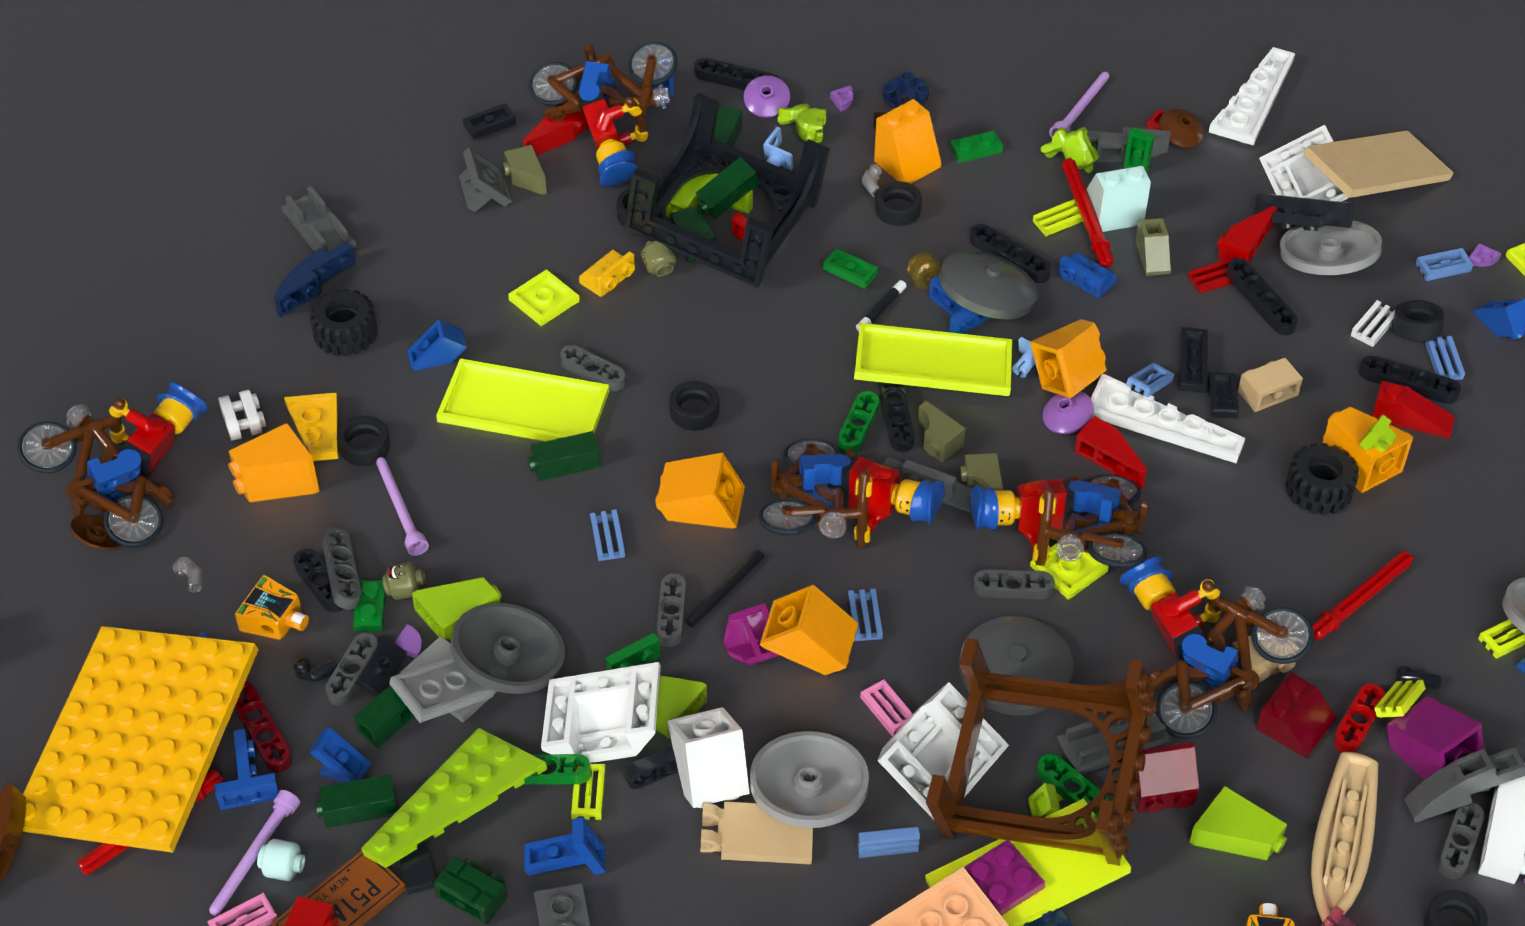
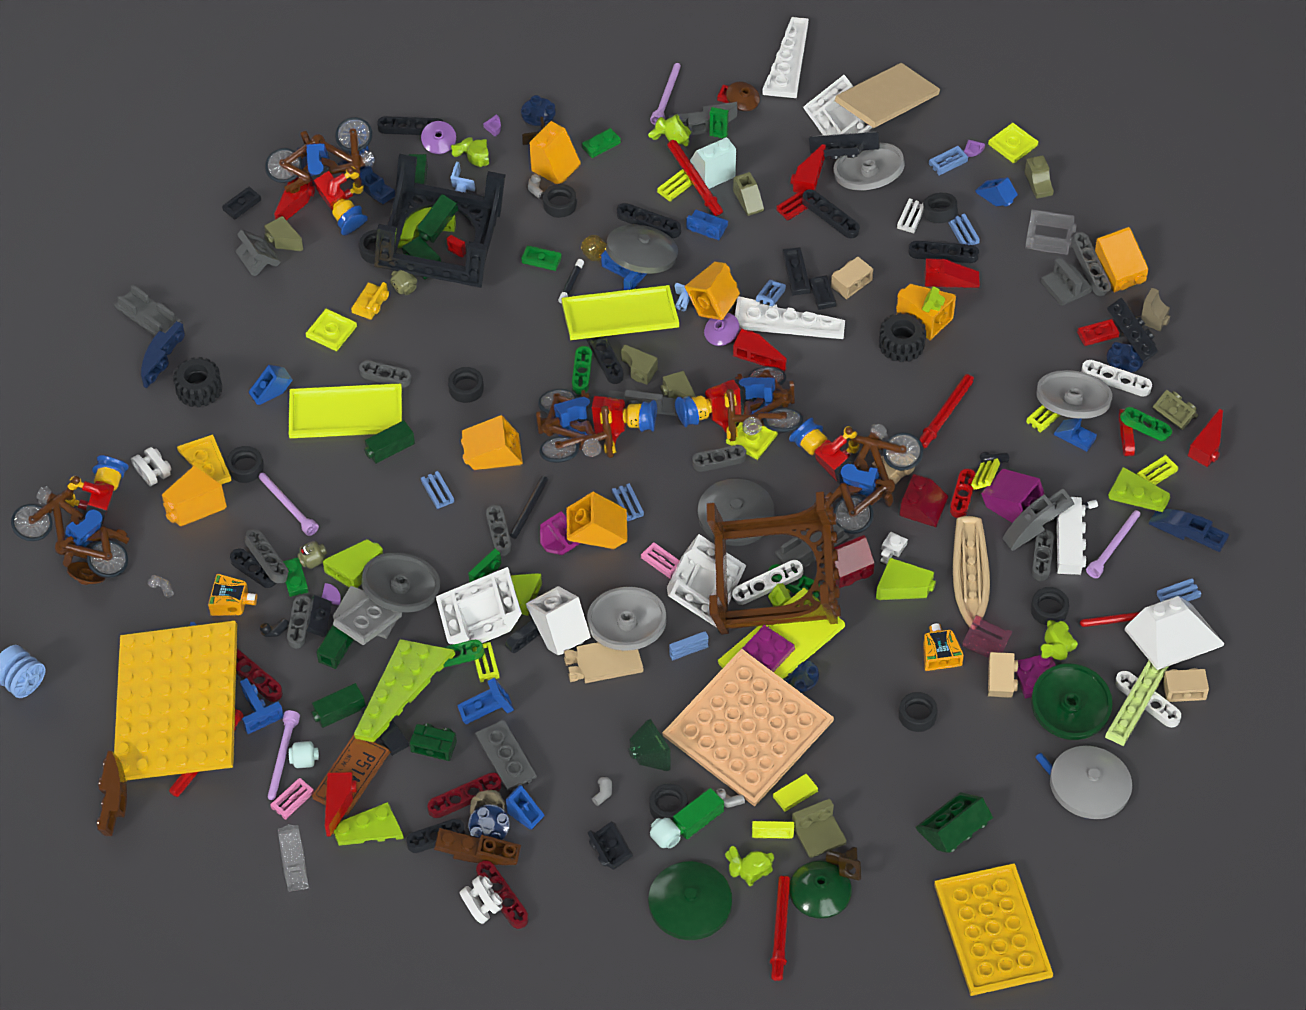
camera: 15 degrees left, 5 degrees up
(339, 758) = (315, 681): blue slope -> none
(662, 132) = (374, 184): none -> dark blue slope
(1031, 772) = (765, 578): none -> white beam
(1234, 770) = (892, 546): none -> white plate

